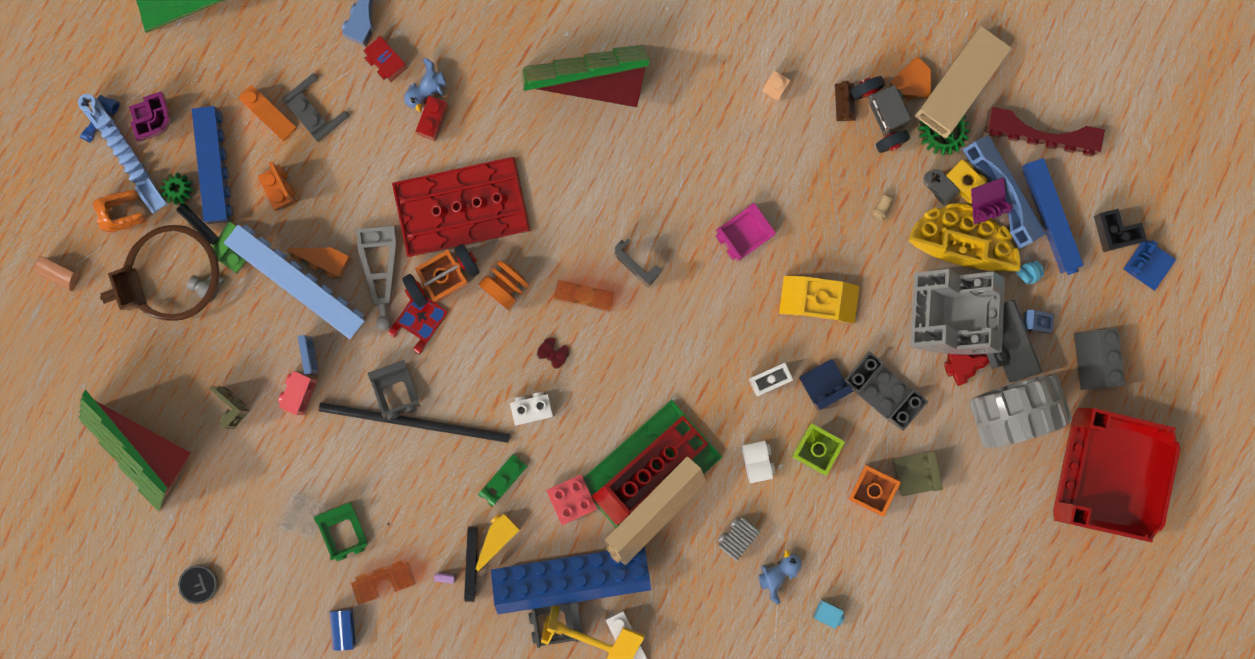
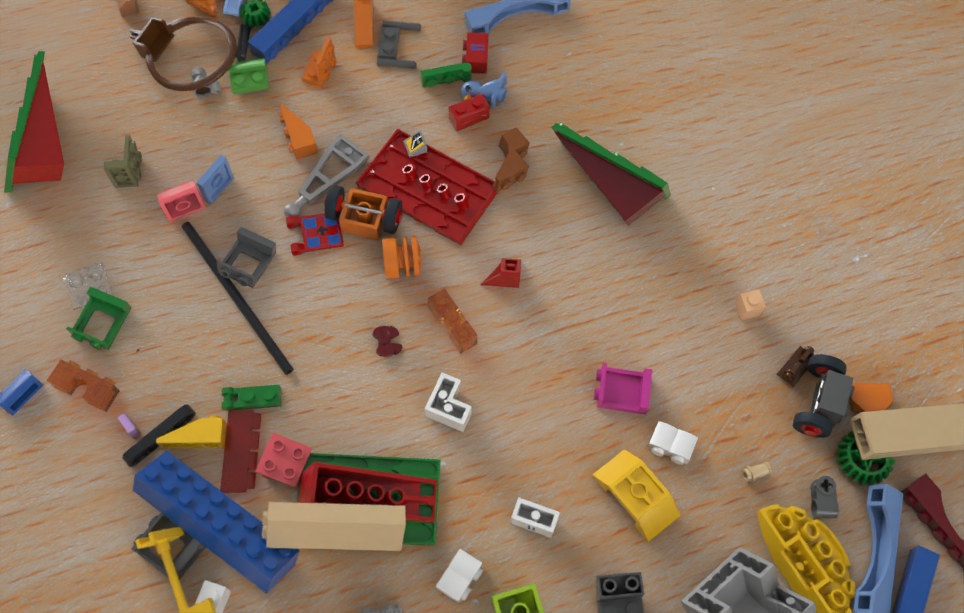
camera: 45 degrees right, 20 degrees down
(294, 281) = (261, 124): light blue brick -> none
(382, 101) = (446, 74): none -> green plate
(421, 185) = (415, 144): none -> slope
(511, 134) = (514, 167): none -> dark orange arch
(527, 517) = (237, 453): none -> clear red windscreen
(531, 409) = (327, 365): white brick -> none
(584, 222) = (505, 274): none -> red slope
(639, 363) = (443, 404): none -> white brick
(646, 279) = (516, 349): dark grey window -> none
(811, 240) = (672, 443): none -> white brick
(825, 384) = (577, 568): dark blue bracket -> none
(956, 175) = (846, 526): yellow brick -> none
(989, 201) = (859, 546): magenta hinge -> none

